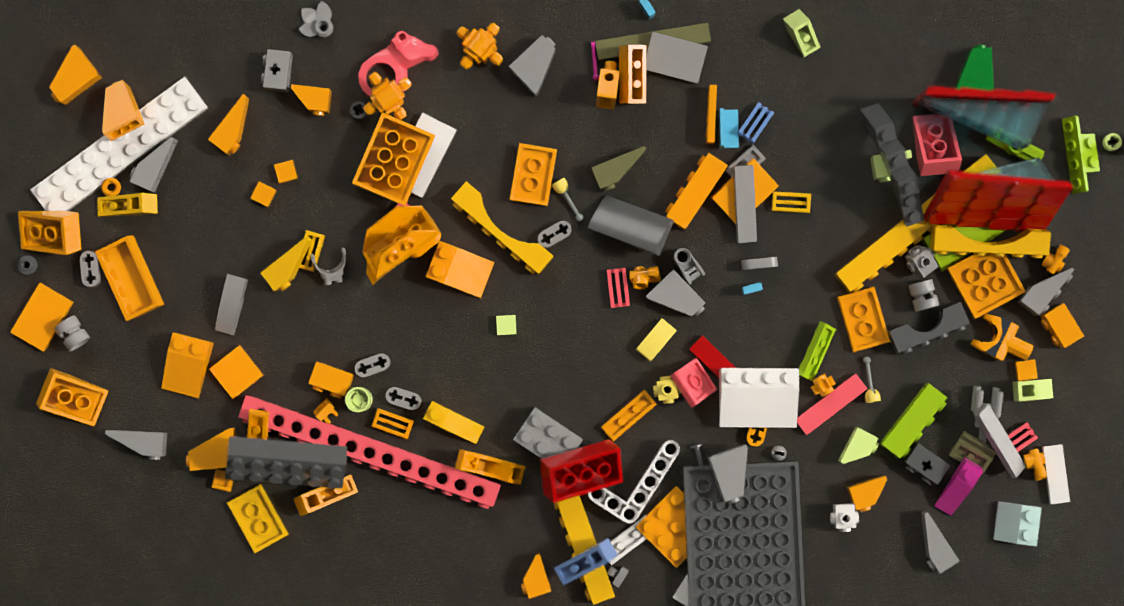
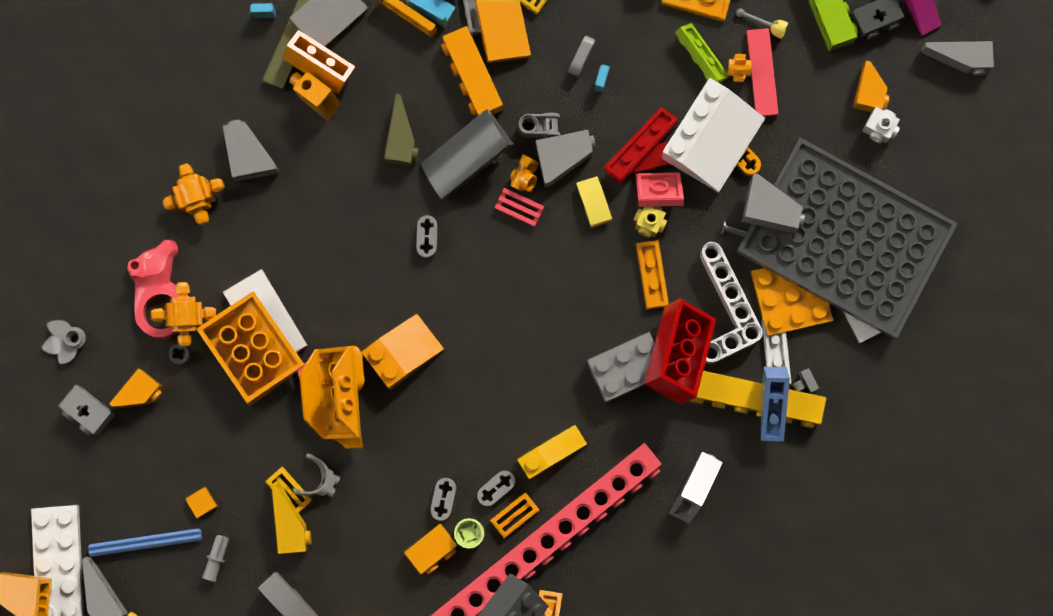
camera: 60 degrees left, 5 degrees down
(211, 173) = (145, 542): none -> medium blue axle
(230, 130) = (115, 496): light orange slope -> none
(230, 229) = (215, 558): none -> light grey axle
(286, 171) = (193, 465): light orange tile -> none
(324, 409) = (457, 575): light orange tile -> none
(490, 466) = (619, 441): light orange arch -> none
(492, 542) = (696, 487): none -> slope
(506, 325) = (487, 340): yellowish green tile -> none
(533, 174) = (355, 221): light orange plate -> none
(533, 254) = (433, 270): yellow arch -> none
(536, 579) = (760, 466): light orange slope -> none
(561, 187) = (384, 201): hinge -> none
(596, 76) = (297, 101): dark pink hinge -> none
(719, 348) = (640, 145): none -> red tile
(745, 203) = (514, 33): light grey tile -> none
(778, 457) = (783, 155): light grey hinge -> none
(858, 446) = (819, 70): yellowish green slope -> none

